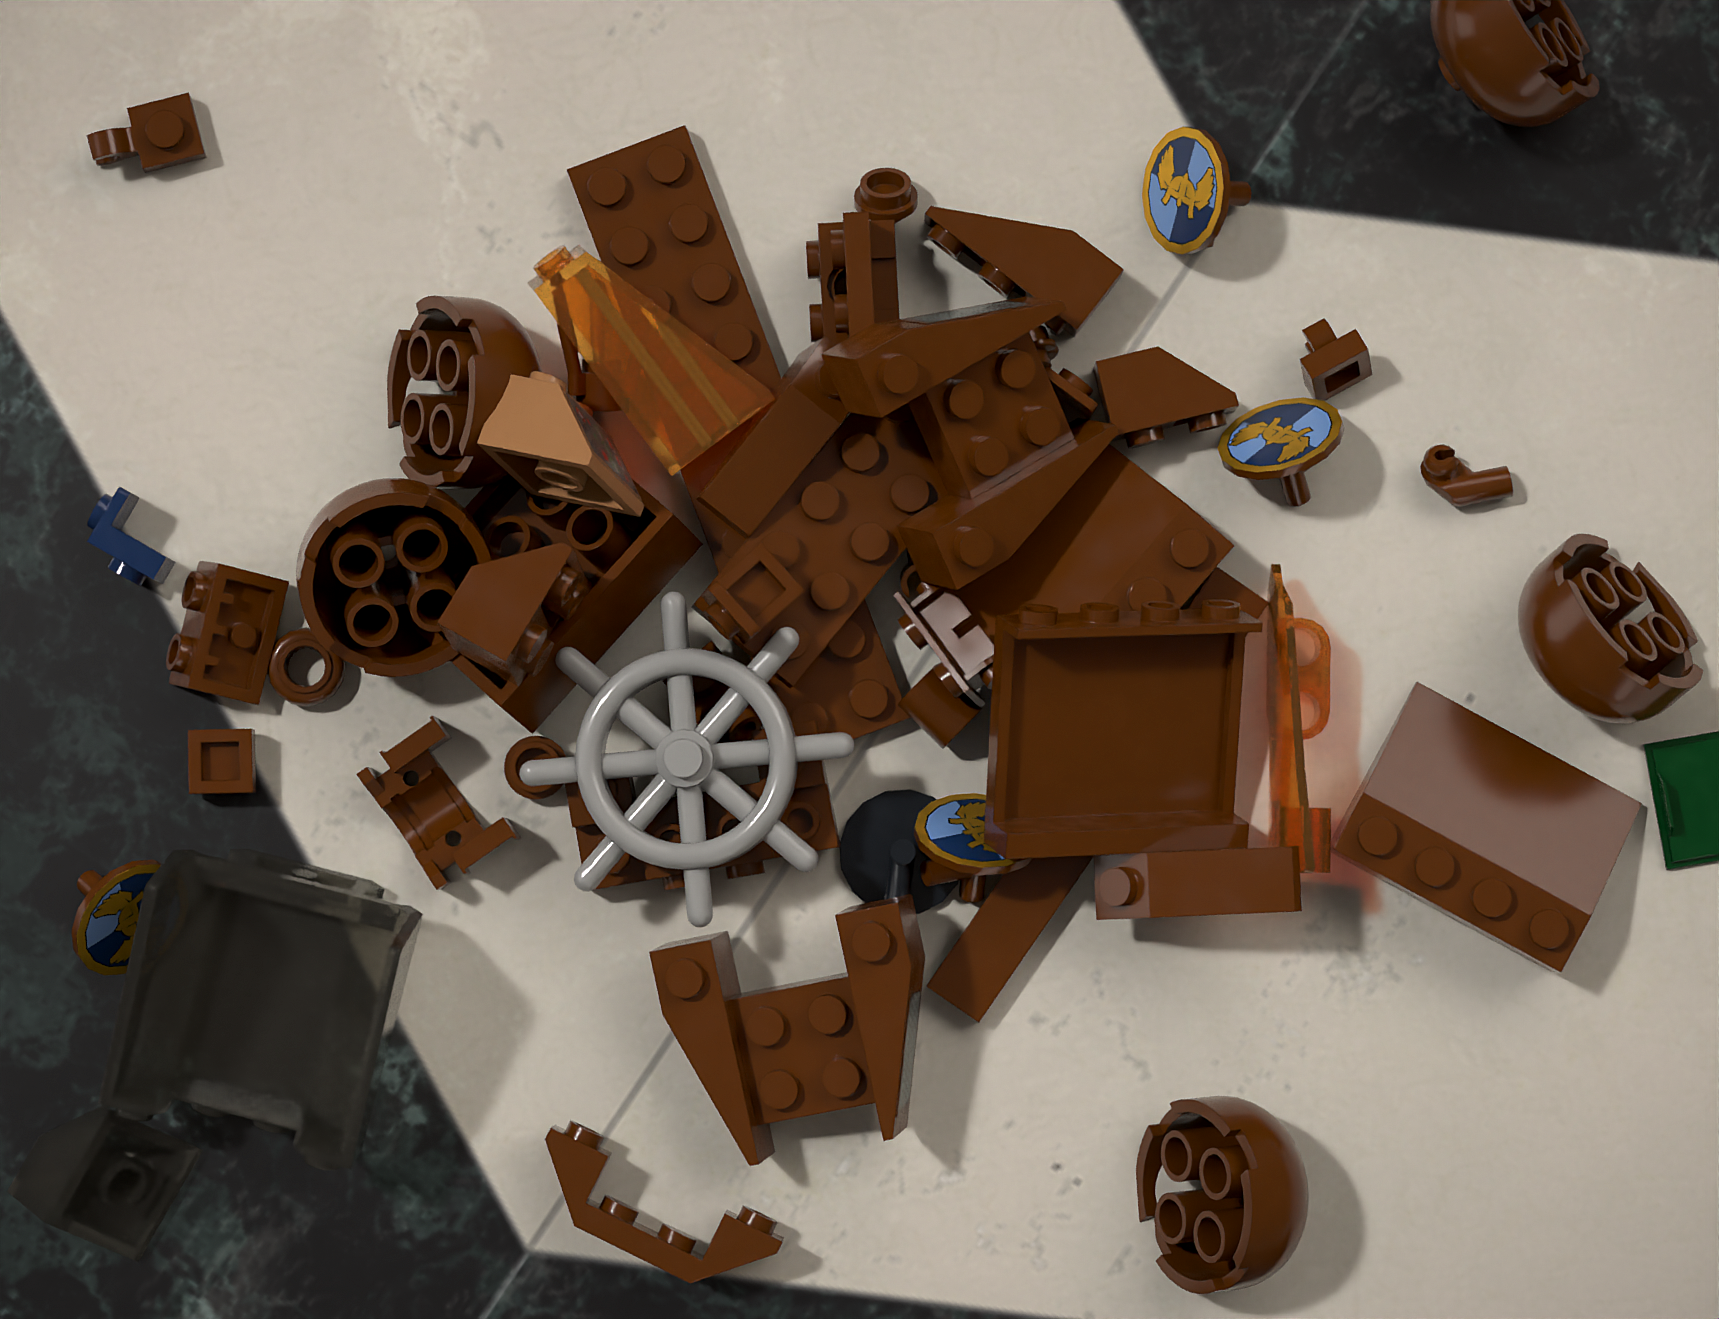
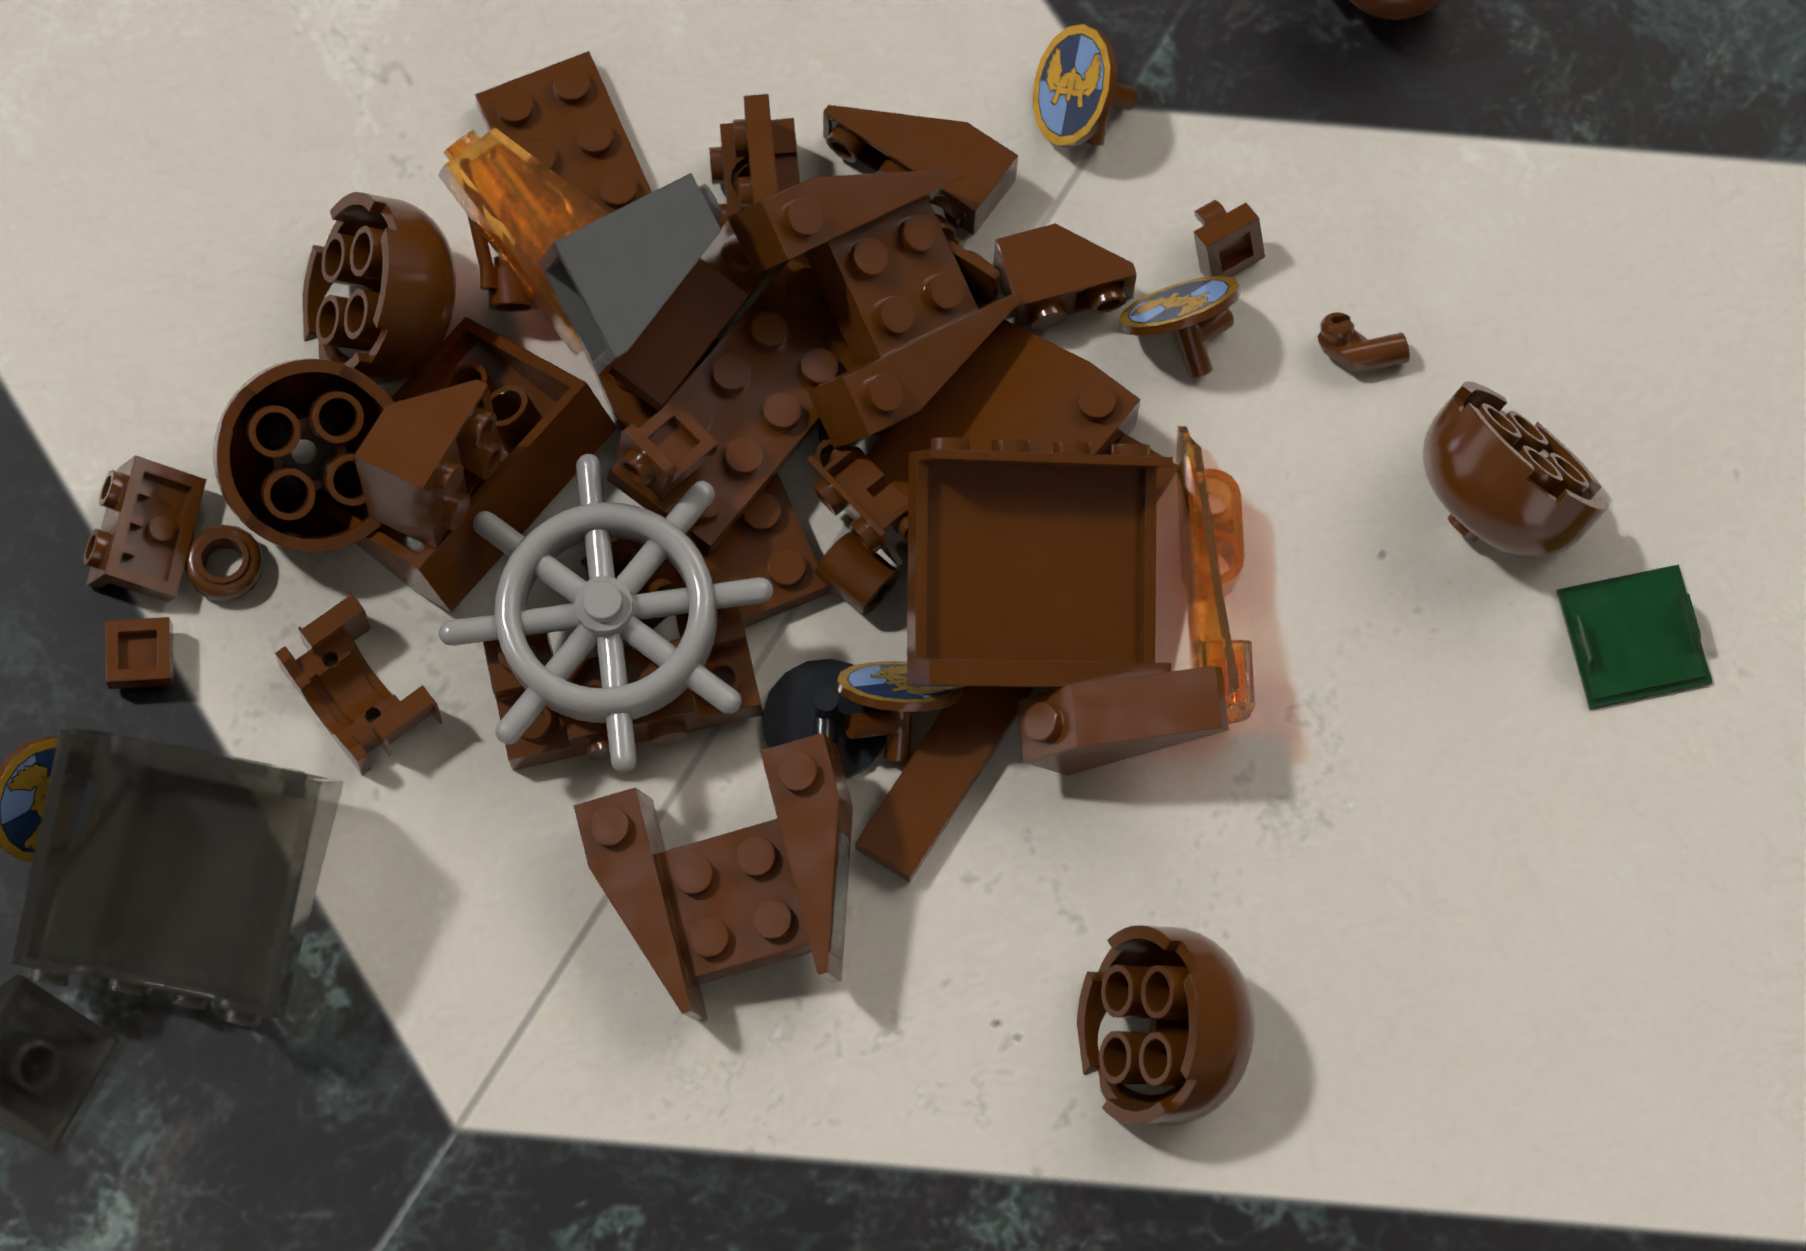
camera: 10 degrees left, 15 degrees down
(130, 557) = (45, 456): dark blue bracket -> none
(160, 133) = (79, 78): reddish brown plate -> none
(531, 749) = (452, 662): reddish brown plate -> none
(557, 447) = (483, 332): medium nougat slope -> none
(579, 1166) = (669, 1104): reddish brown slope -> none
(724, 410) = (629, 264): none -> dark grey slope
(886, 195) = (790, 101): reddish brown plate -> none
(1486, 828) = (1404, 673): reddish brown slope -> none

